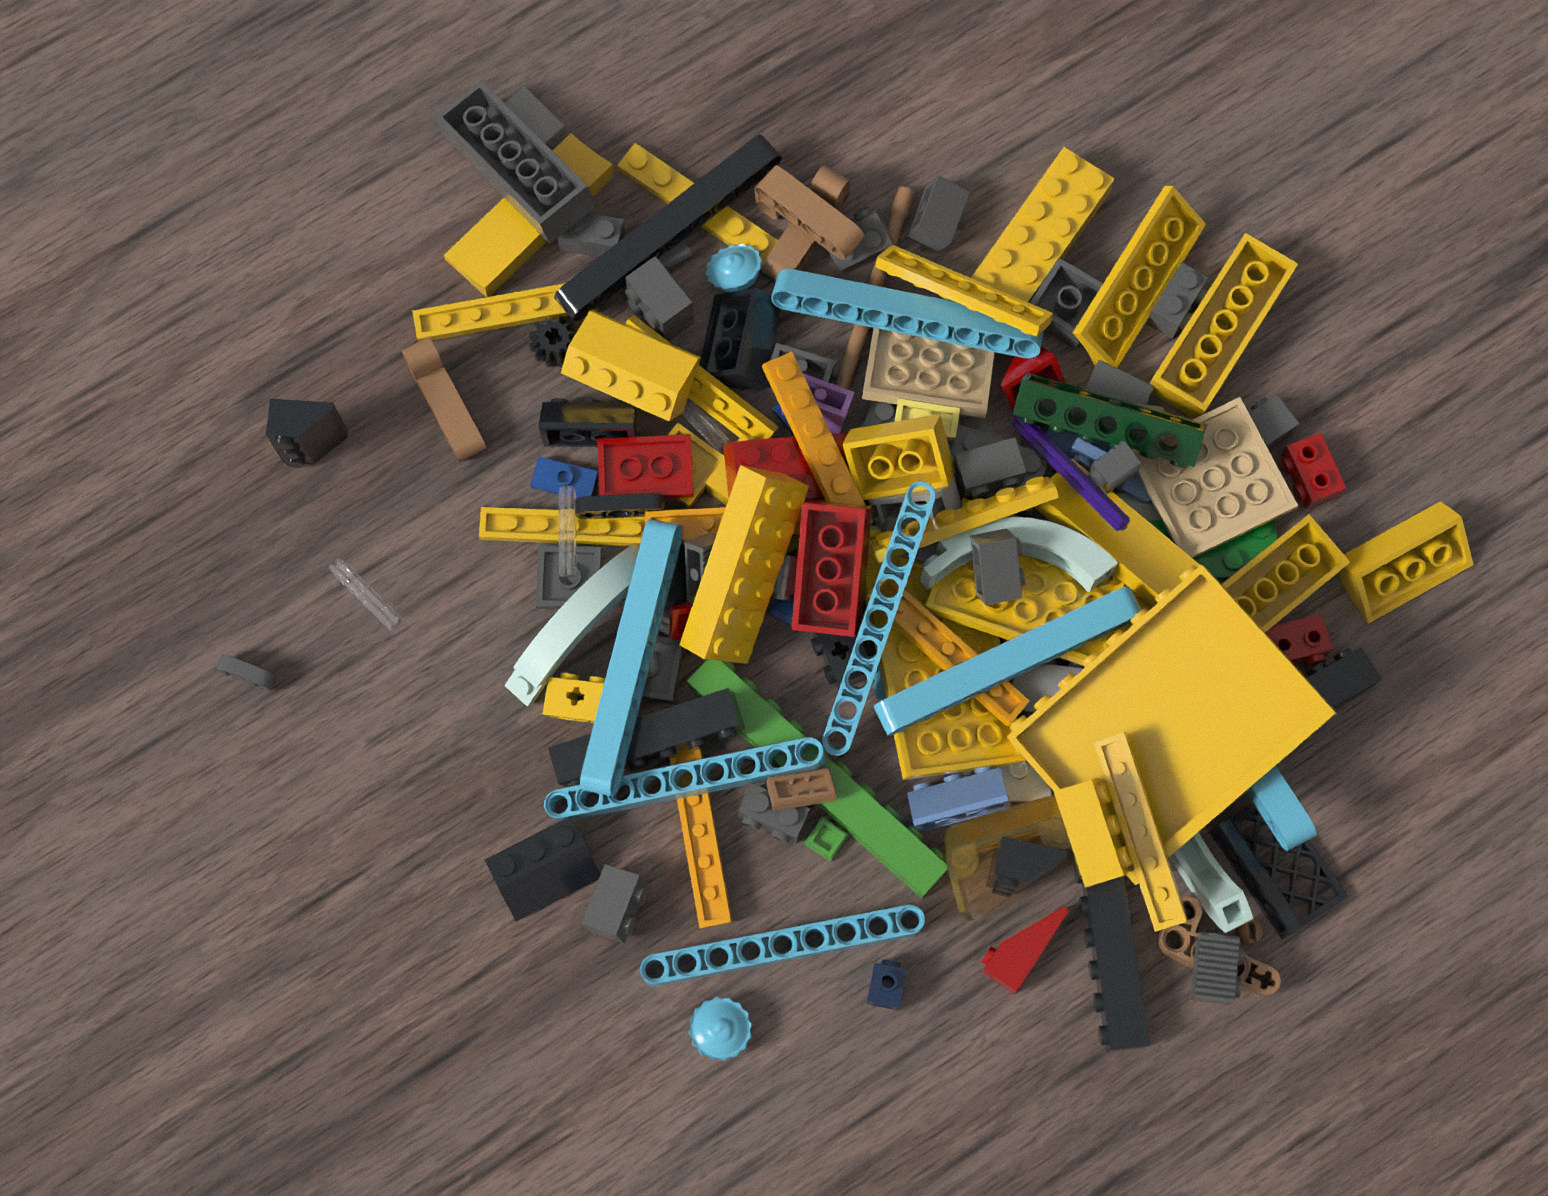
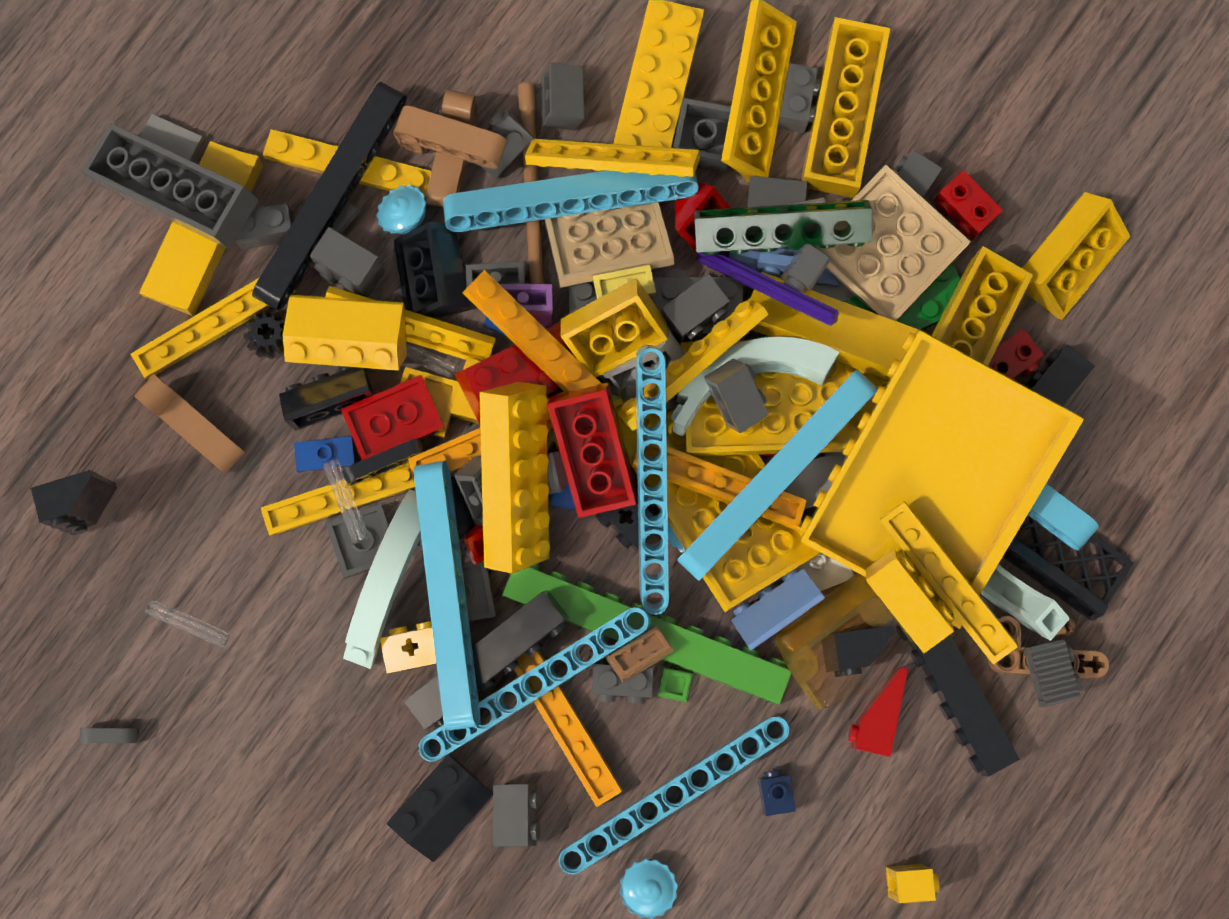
camera: 25 degrees left, 5 degrees up
(990, 1125) = (912, 883): none -> yellow brick

